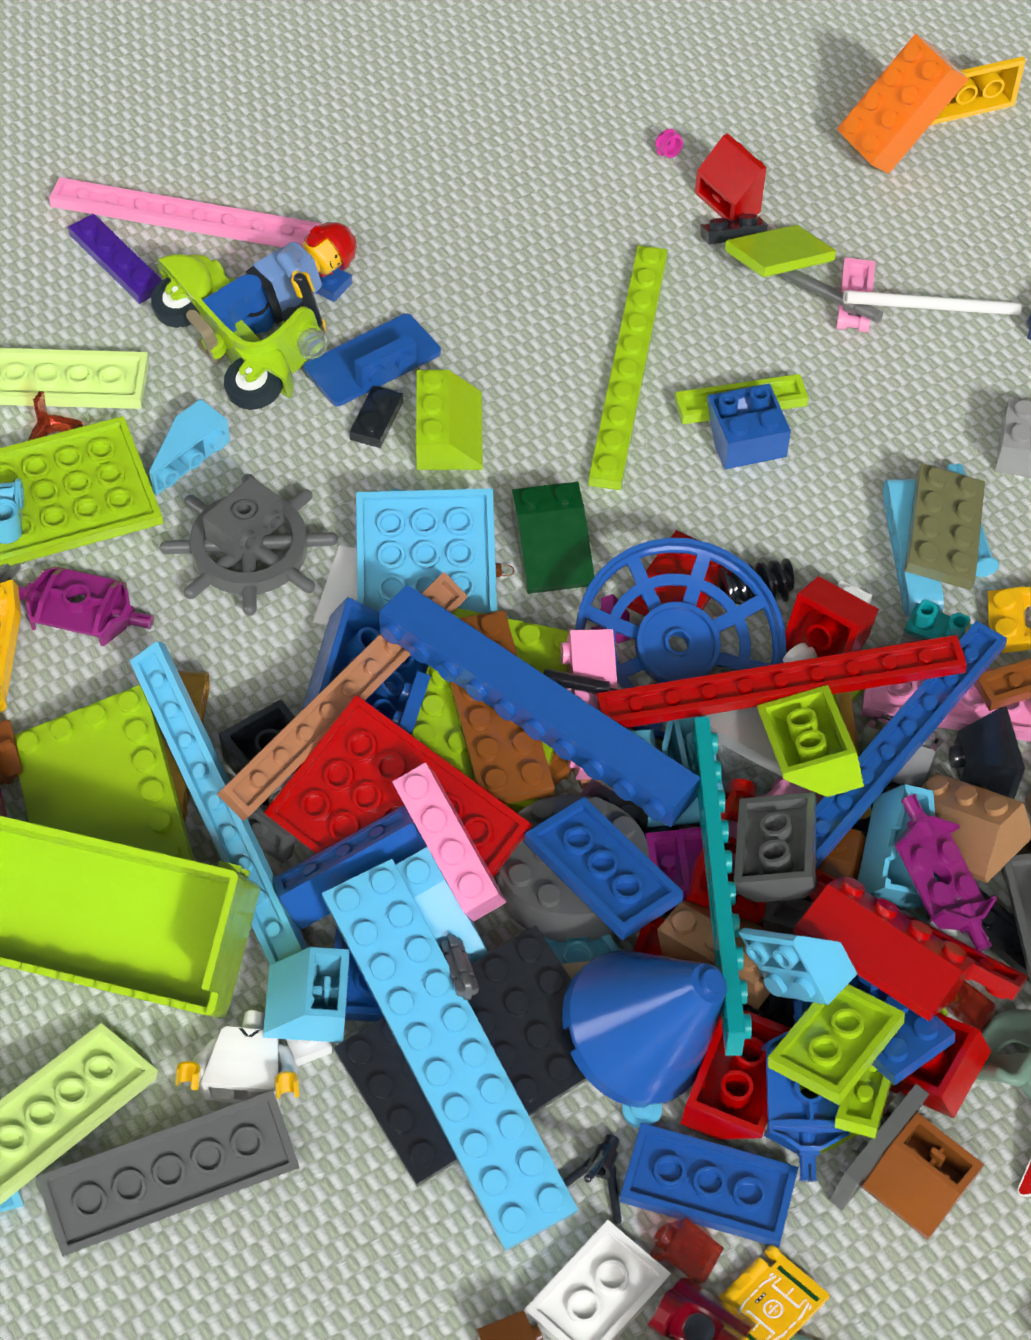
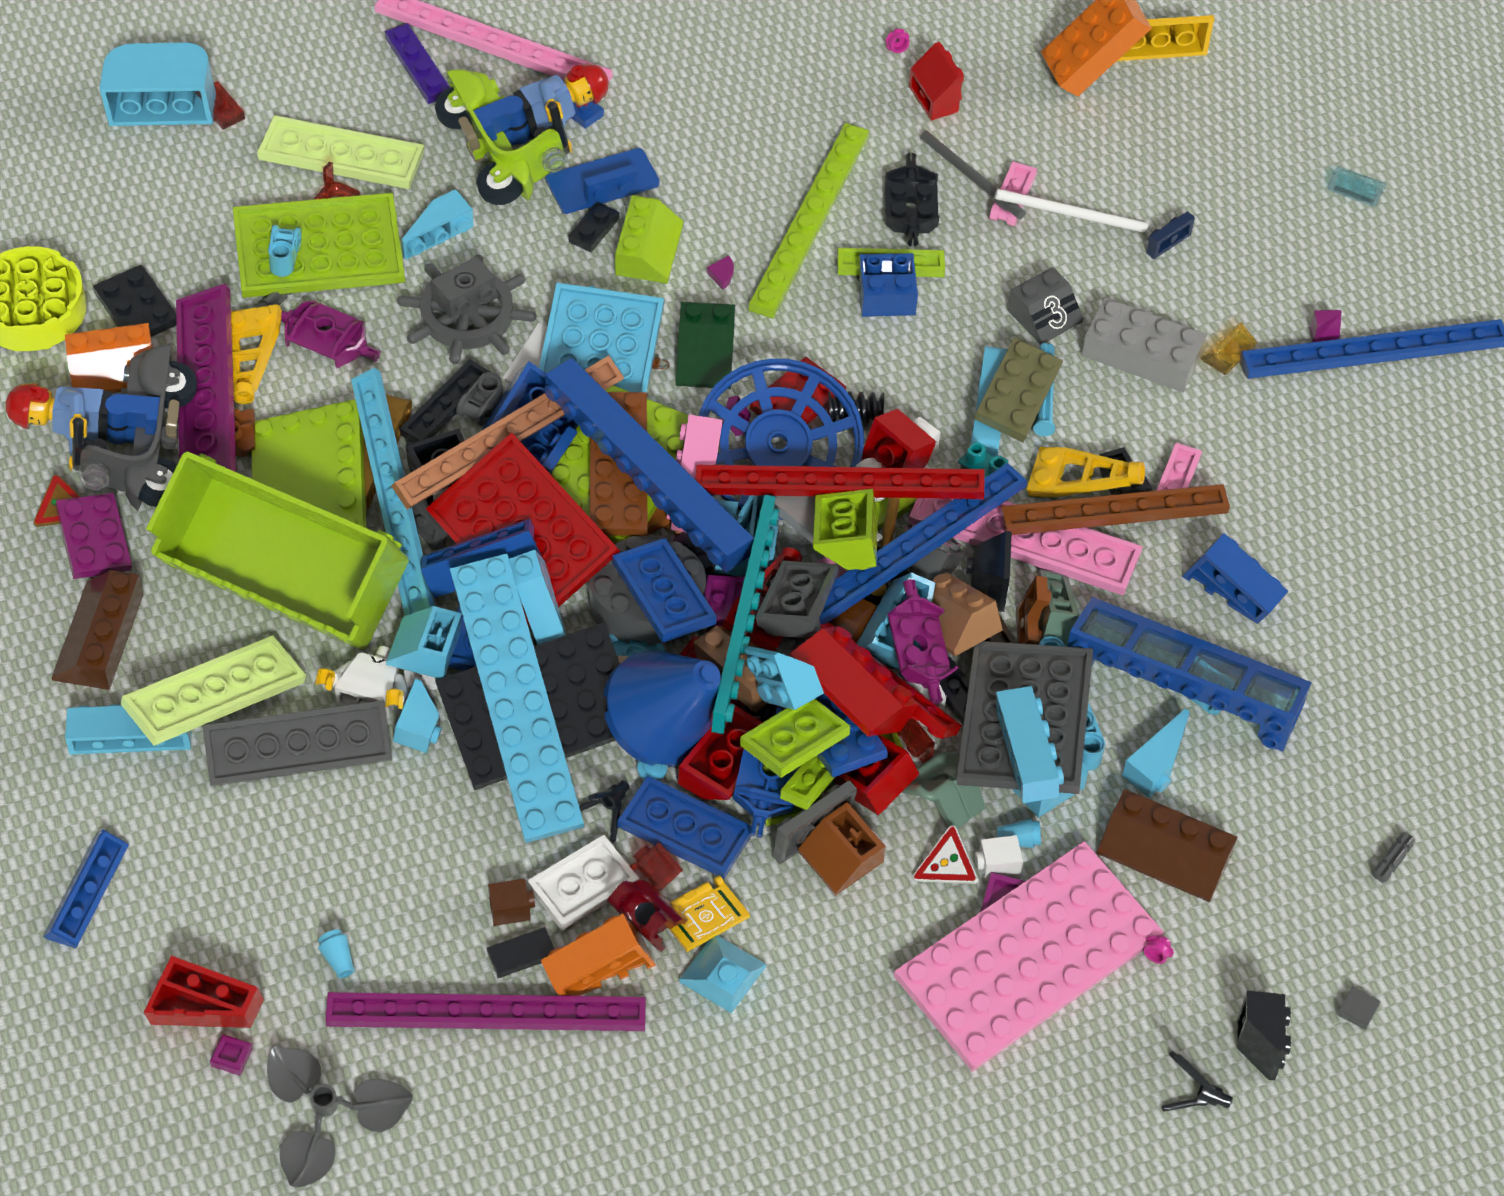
camera: 10 degrees right, 0 degrees up
(251, 668) = (442, 405): none -> black plate
(296, 659) = (481, 398): none -> dark grey piece
(322, 1105) = (418, 720): none -> medium azure slope
(449, 842) = (553, 550): bright pink brick -> none
(460, 967) = (538, 640): dark grey axle -> none
(544, 444) = (722, 272): none -> magenta tile
(578, 682) = (684, 454): black piece -> none
(721, 229) = (919, 122): black plate -> none
(745, 305) = (913, 186): none -> black plate
(780, 250) = (960, 146): lime tile -> none
(937, 419) = (1045, 305): none -> dark grey slope

